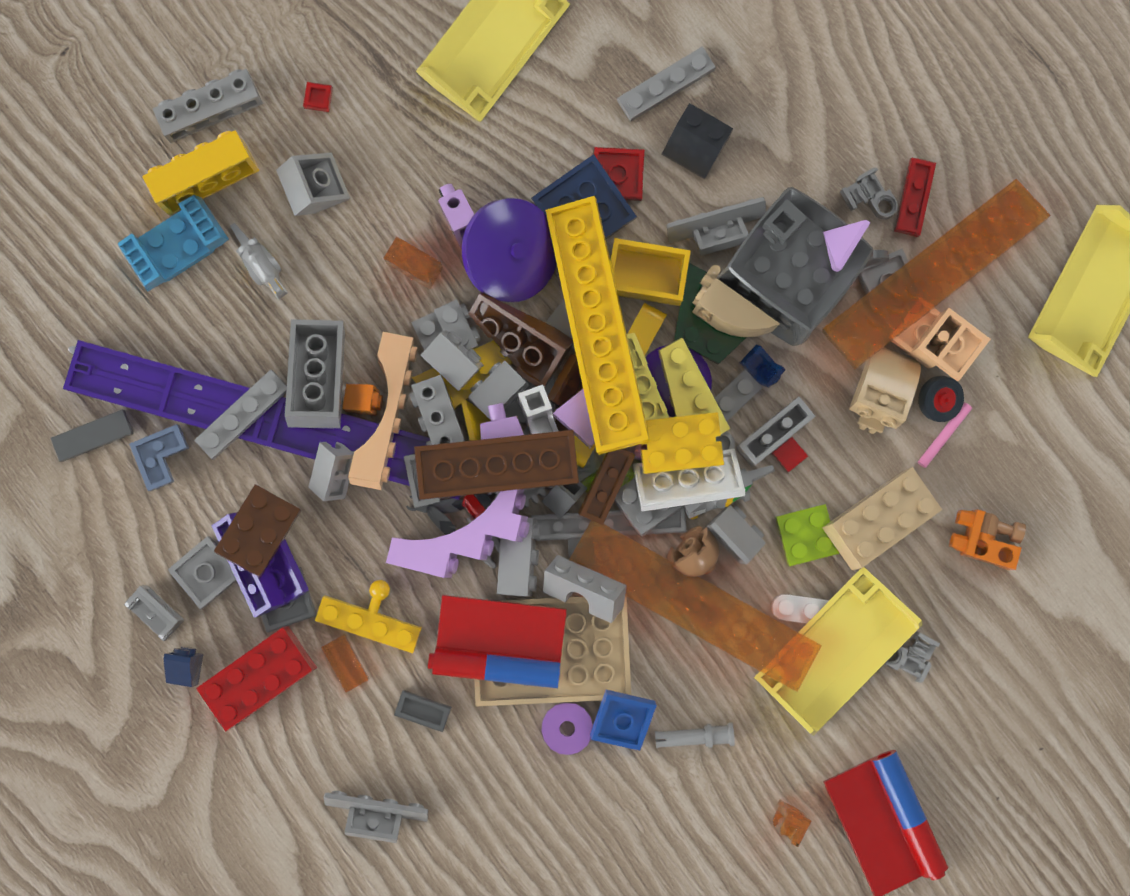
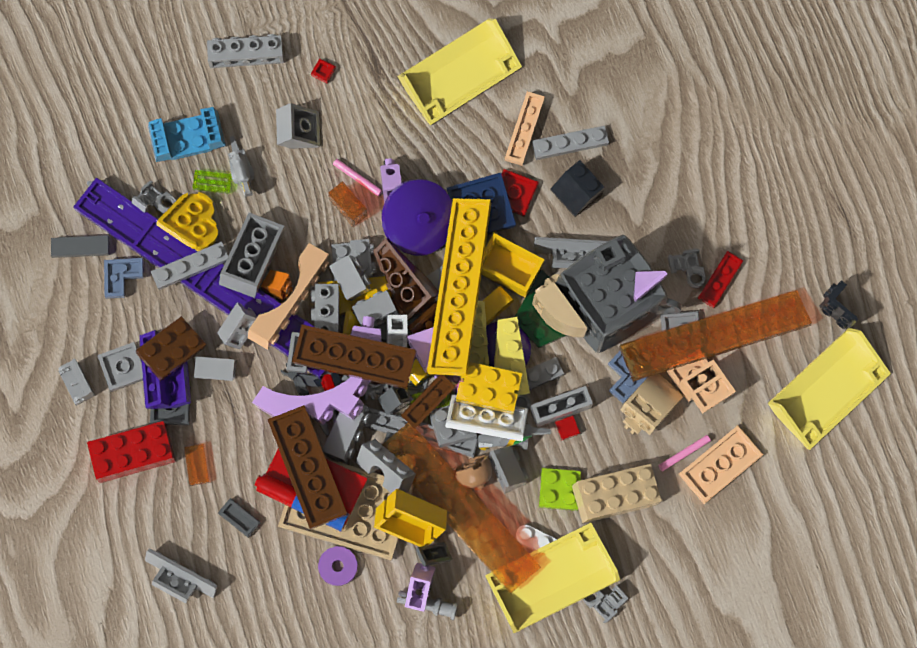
camera: 20 degrees right, 10 degrees down
(160, 338) = (151, 196): none -> light grey piece
(183, 666) = (82, 425): dark blue slope -> none
(201, 172) = (224, 93): yellow brick -> none
(221, 355) = (191, 221): none -> yellow plate
(229, 302) = (228, 184): none -> clear neon green tile
(323, 534) = (215, 368): none -> light grey hinge
(368, 621) = (224, 442): yellow plate -> none
(412, 222) = (357, 177): none -> bright pink bar
(487, 626) = (307, 467): none -> reddish brown plate
(602, 85) = (524, 128): none -> light nougat plate
(623, 720) = (379, 572): blue plate -> none
(640, 644) = (410, 518): none -> yellow piece
(681, 711) = (421, 579): none -> lavender torso
(682, 674) = (433, 554): none -> dark grey slope
(762, 366) = (568, 358): clear blue bracket -> none
(844, 376) = (624, 386): none -> sand blue plate
(941, 398) = (689, 425): black wheel -> none
(980, 538) = (684, 536): orange hips -> none
(994, 433) = (721, 464): none -> light nougat tile
(1068, 185) = (833, 308): none -> black bracket

